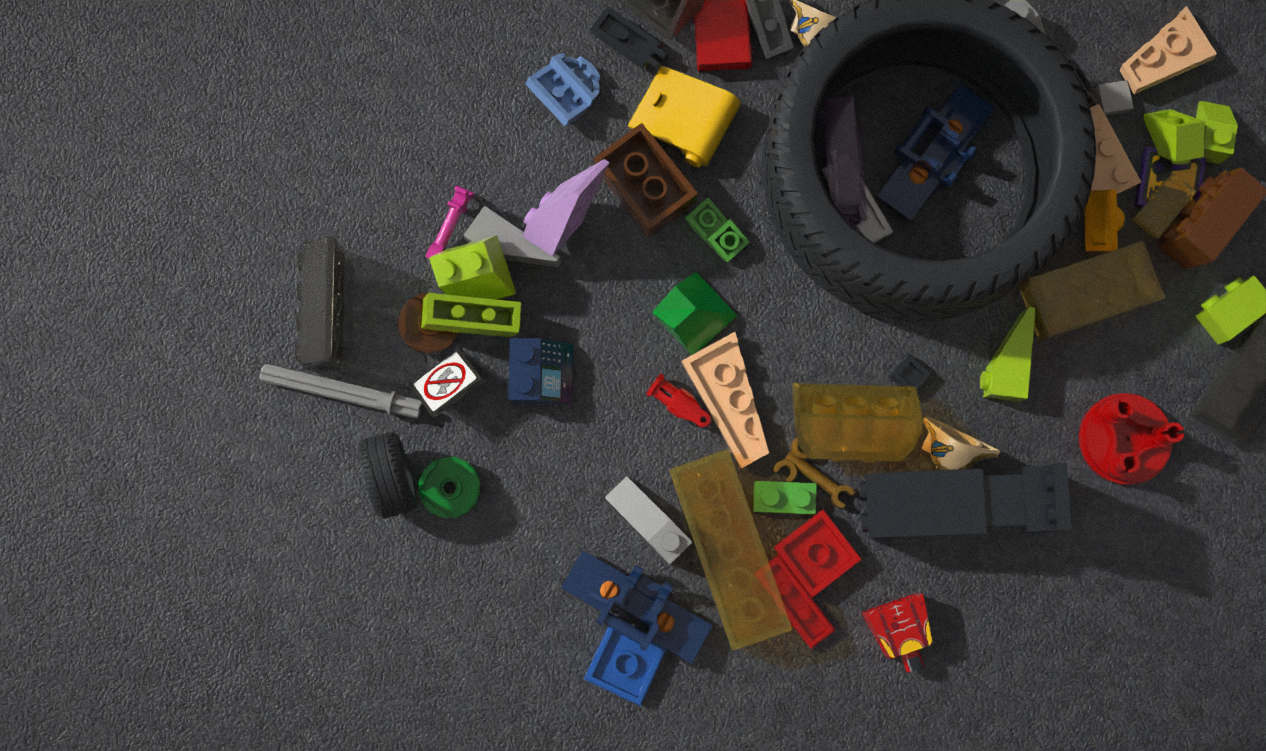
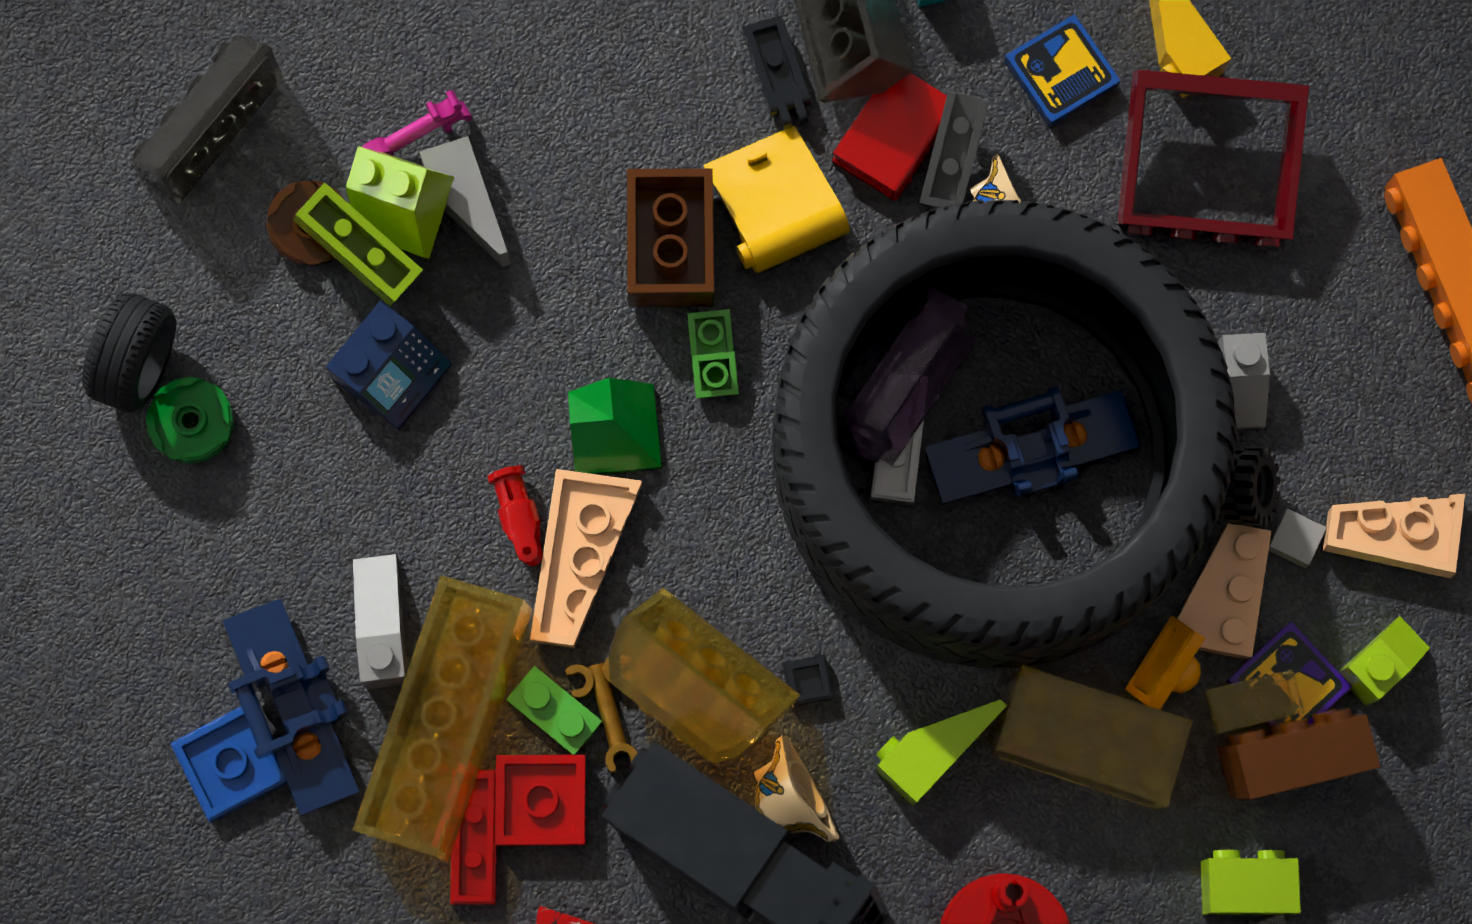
camera: 35 degrees right, 5 degrees down
(341, 391) = (197, 277): light grey axle -> none
(446, 383) = (274, 301): piece -> none
(563, 210) = (548, 204): lavender slope -> none
(566, 87) = (665, 73): medium blue slope -> none
(1176, 135) = (1330, 631): lime slope -> none

